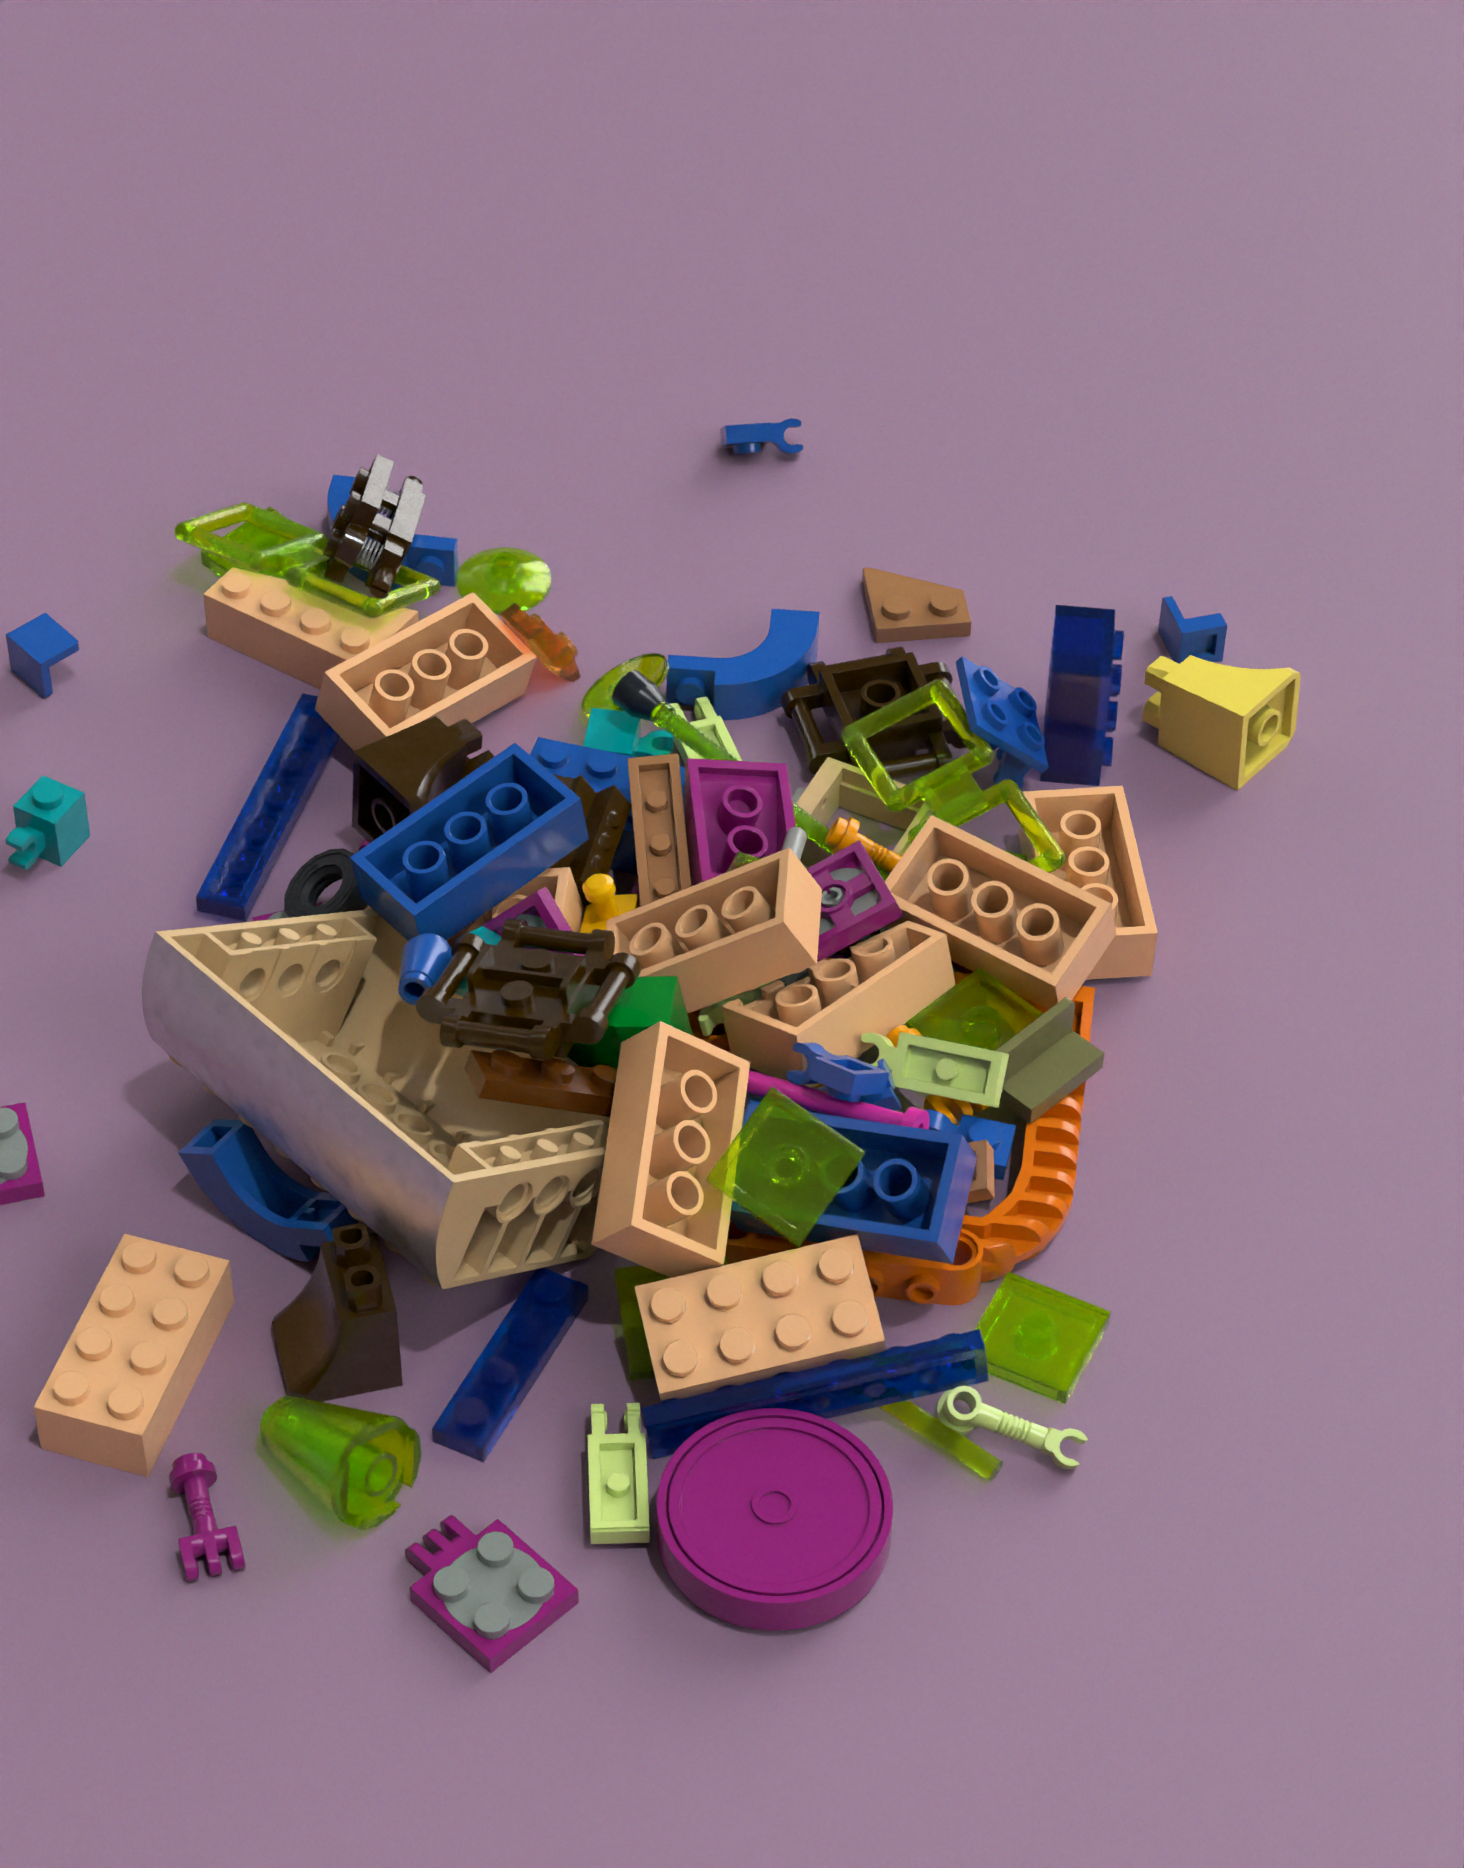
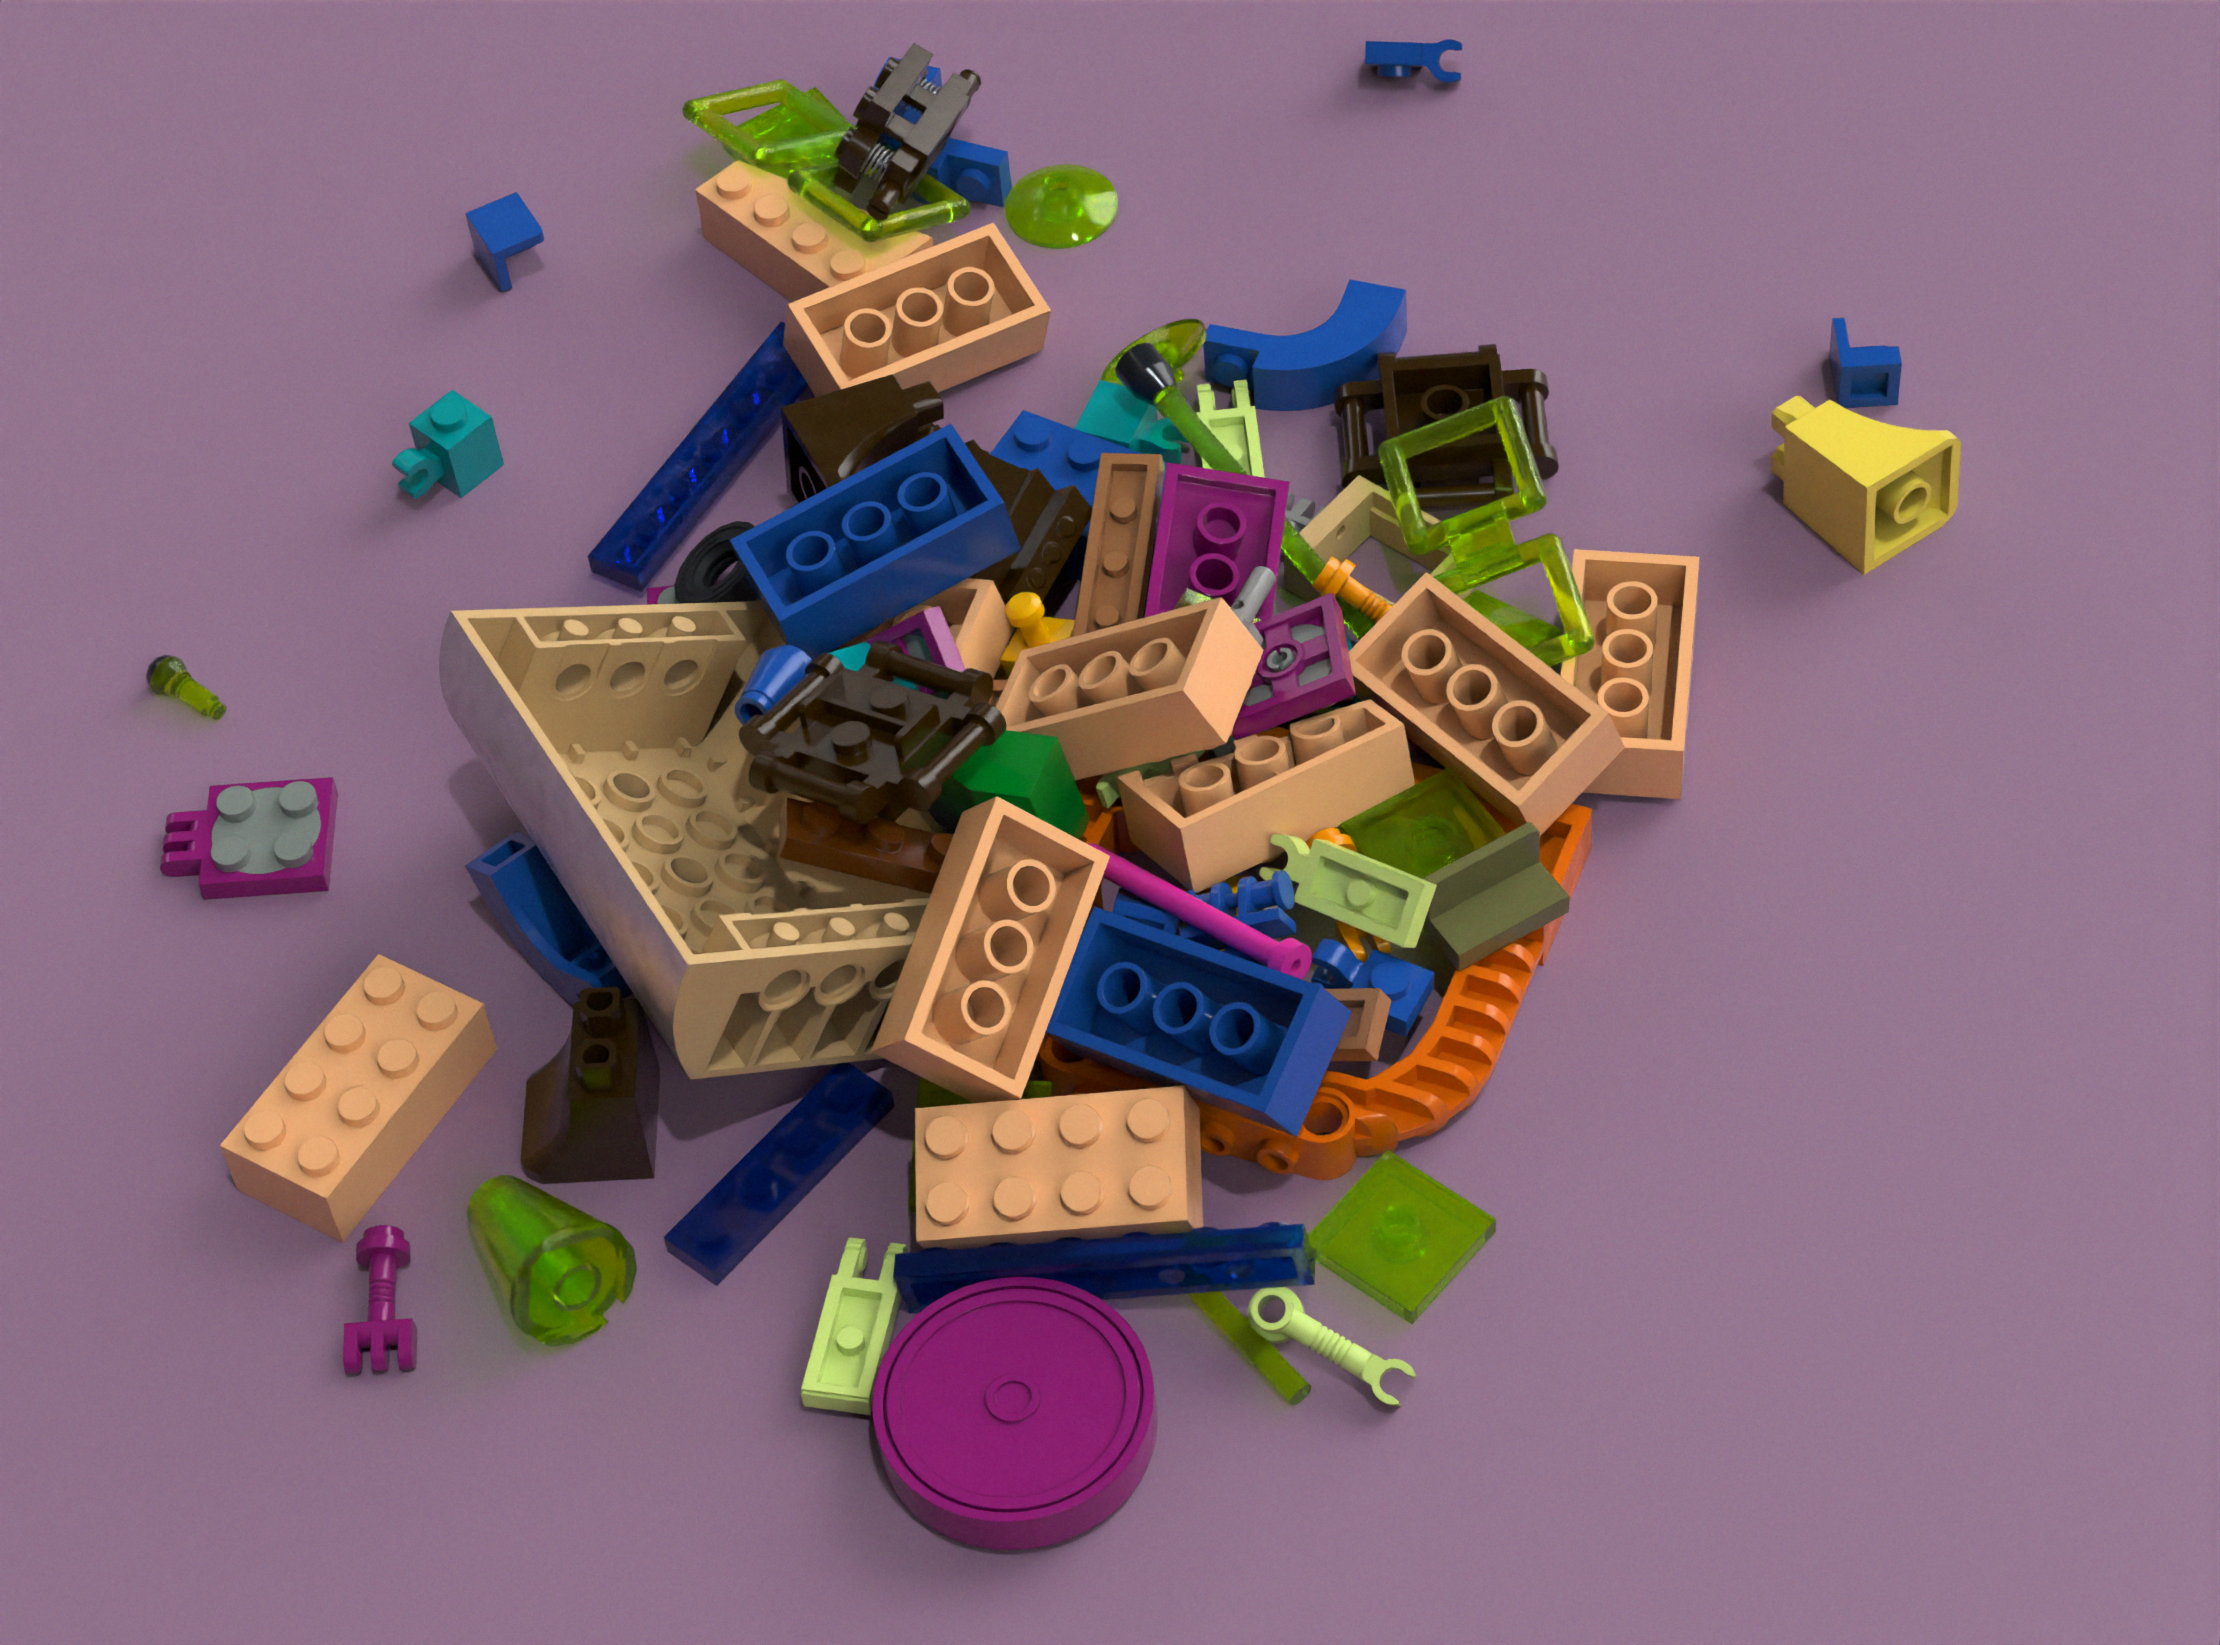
camera: 20 degrees right, 5 degrees up
(487, 1589) = (672, 1442): piece -> none
(552, 649) = (1067, 293): clear orange slope -> none
(785, 1166) = (1110, 993): clear neon green plate -> none
(843, 1074) = (1220, 885): blue plate -> none
(913, 608) = (1534, 295): medium nougat wing -> none
(1004, 719) = (1576, 455): blue plate -> none
(1079, 694) = (1680, 434): clear blue brick -> none

